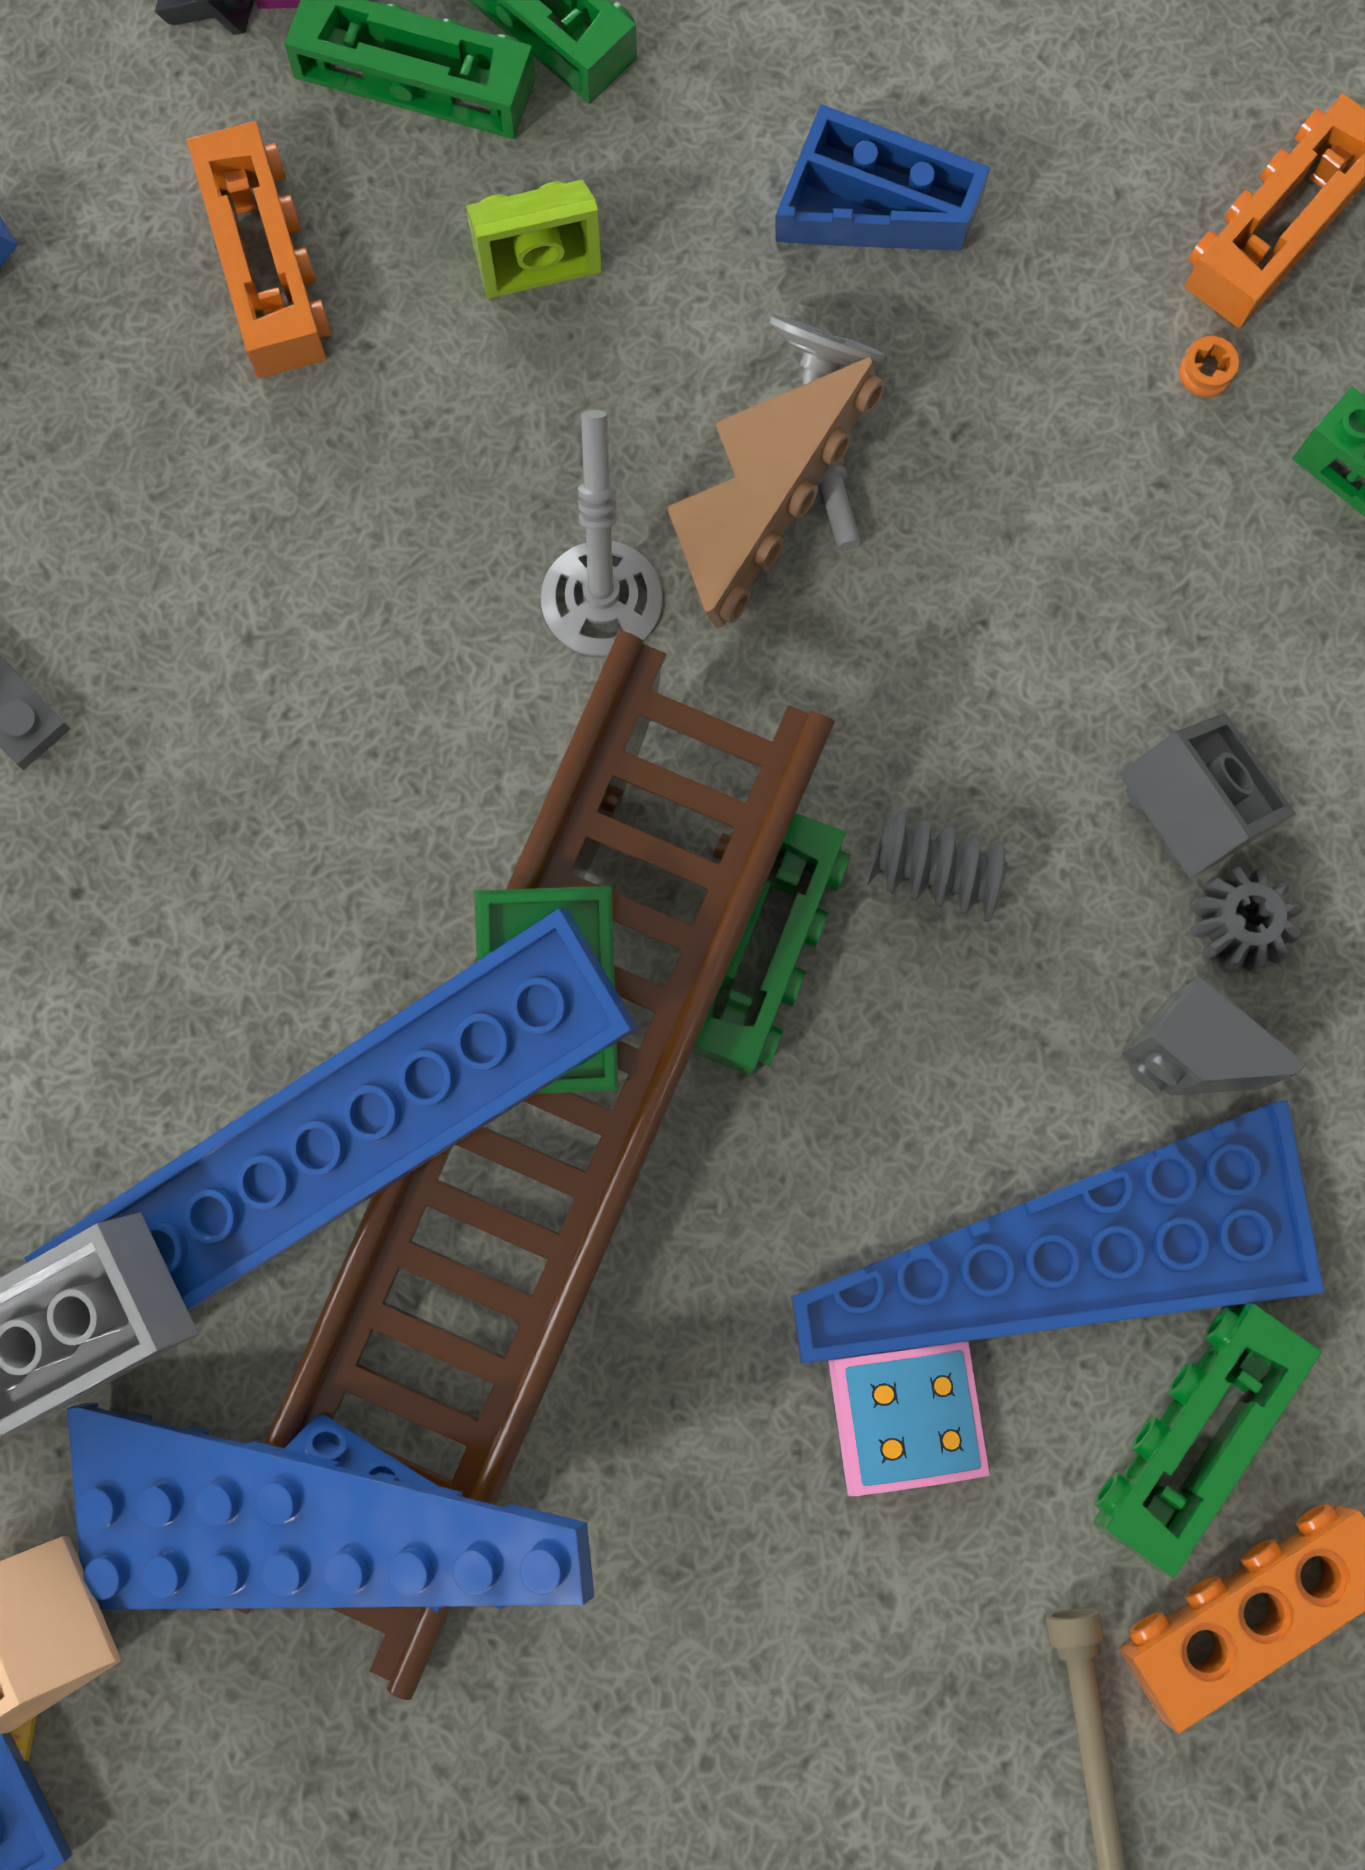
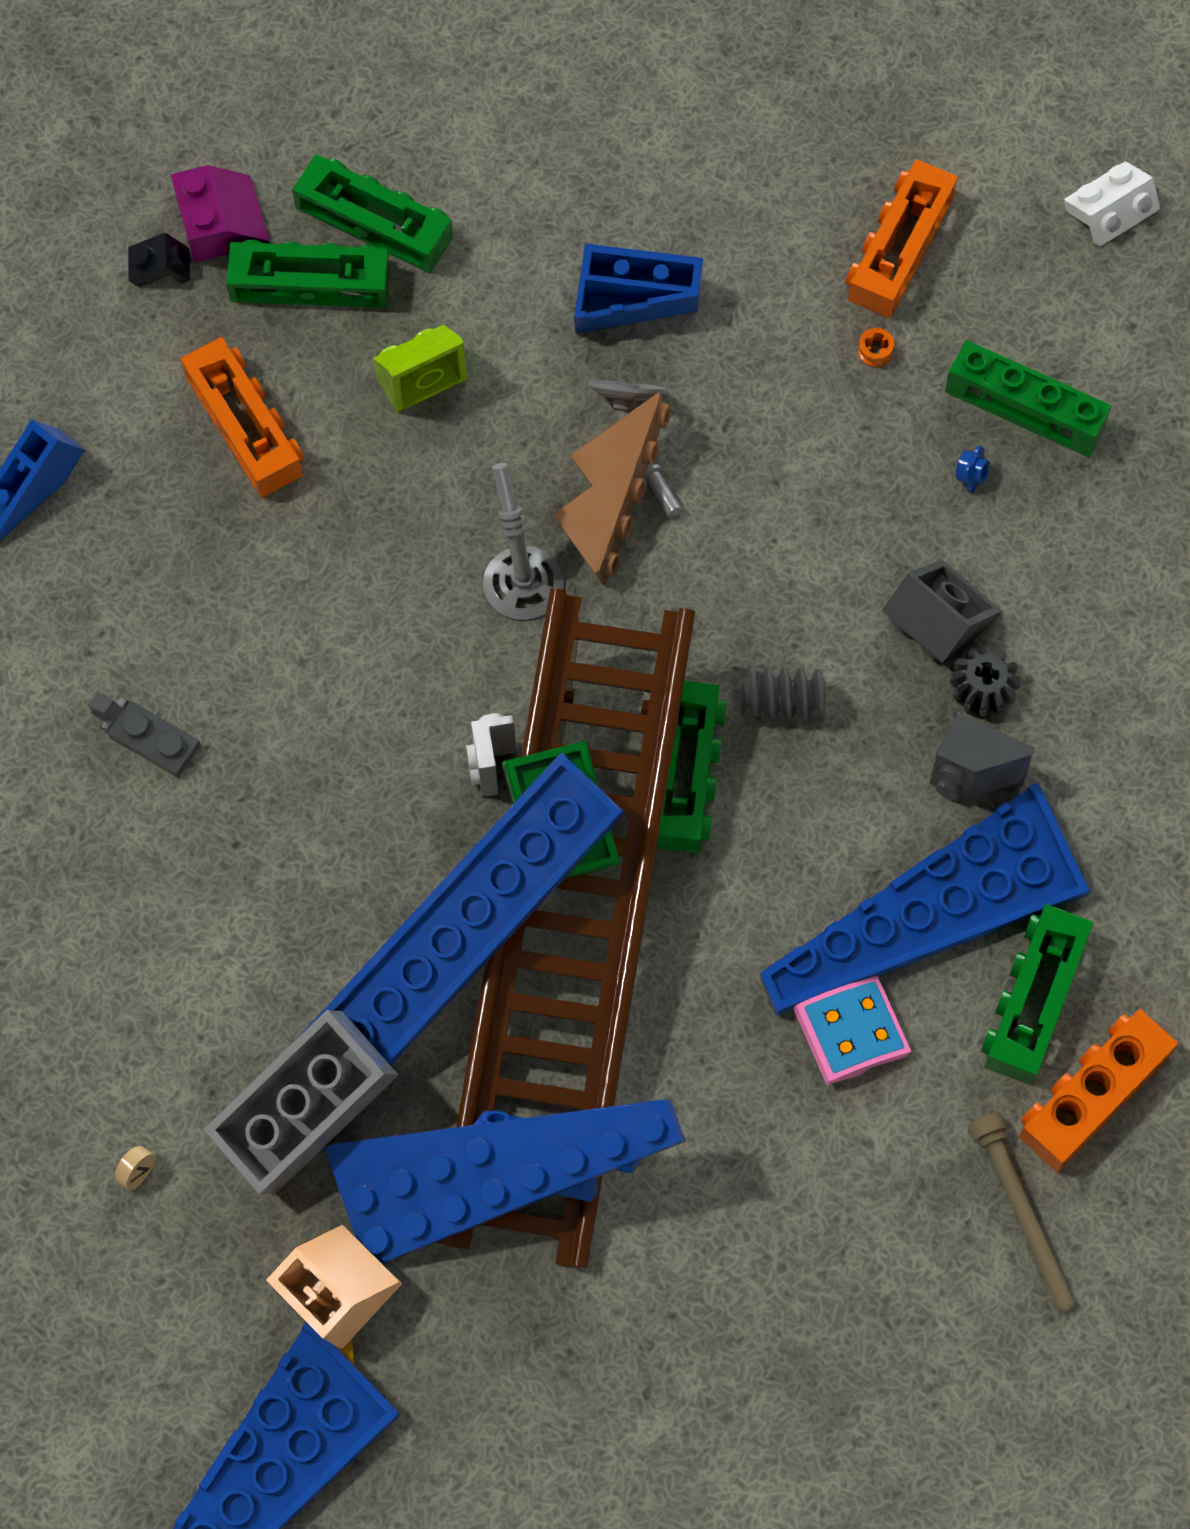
camera: 10 degrees left, 10 degrees down
(462, 855) = (491, 737): none -> white bracket
(1308, 585) = (973, 468): none -> blue plate

